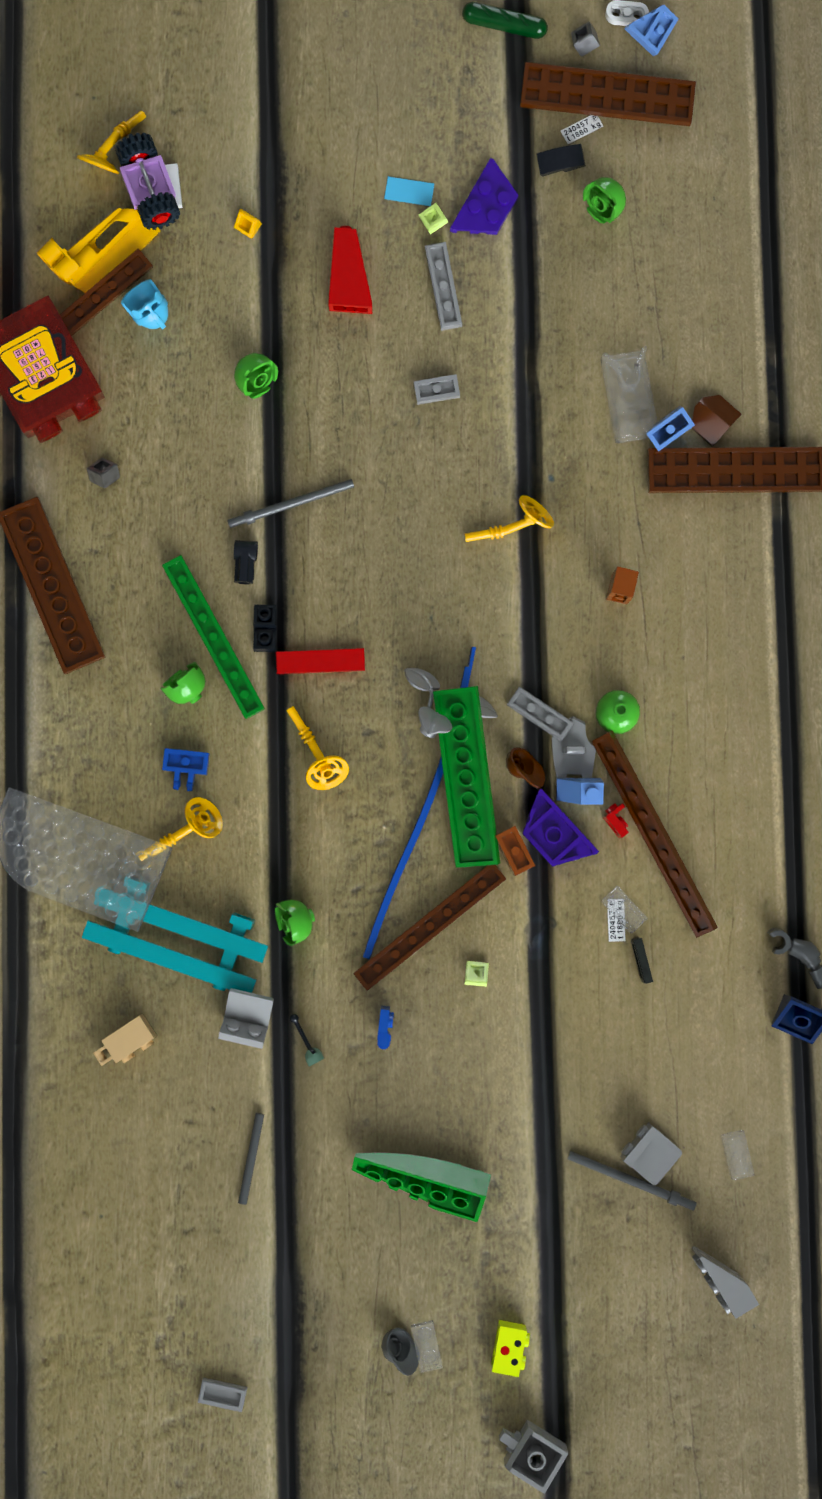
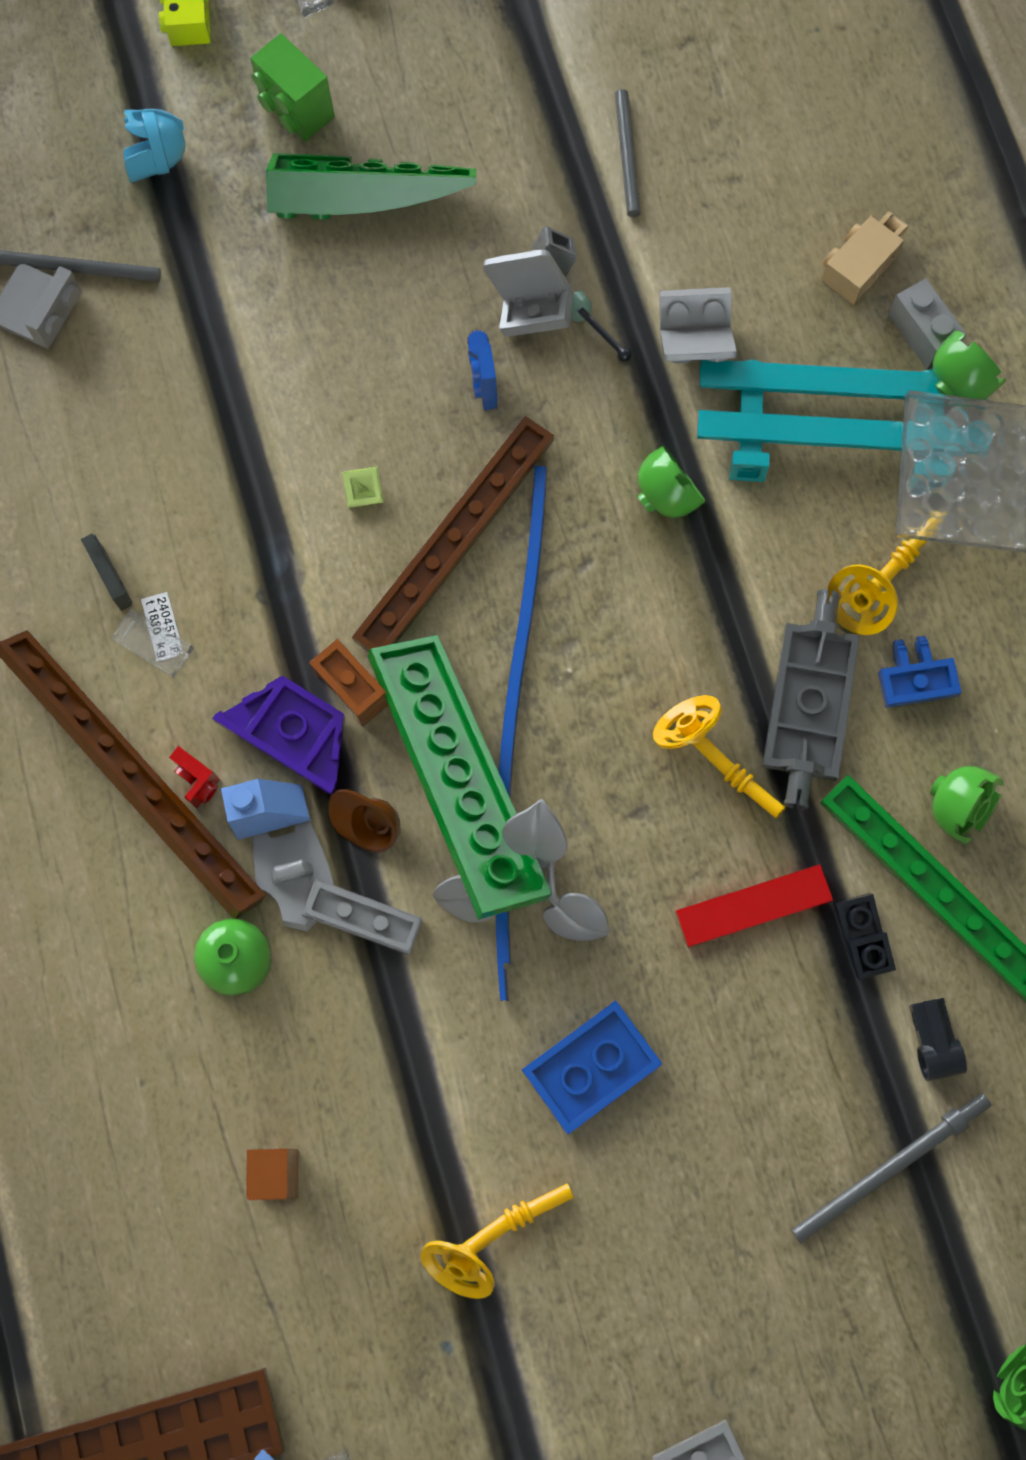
camera: 170 degrees right, 10 degrees down
(97, 938) = (965, 369): none -> bright green cylinder
(105, 983) = (923, 320): none -> light grey brick
(251, 768) = (811, 700): none -> dark grey plate
(317, 1100) = (560, 247): none -> flat silver slope
(341, 1066) = (532, 291): none -> light grey bracket
(435, 597) = (591, 1067): none -> blue plate
(452, 1256) = (292, 87): none -> bright green brick
(553, 1241) = (160, 151): none -> medium azure helmet

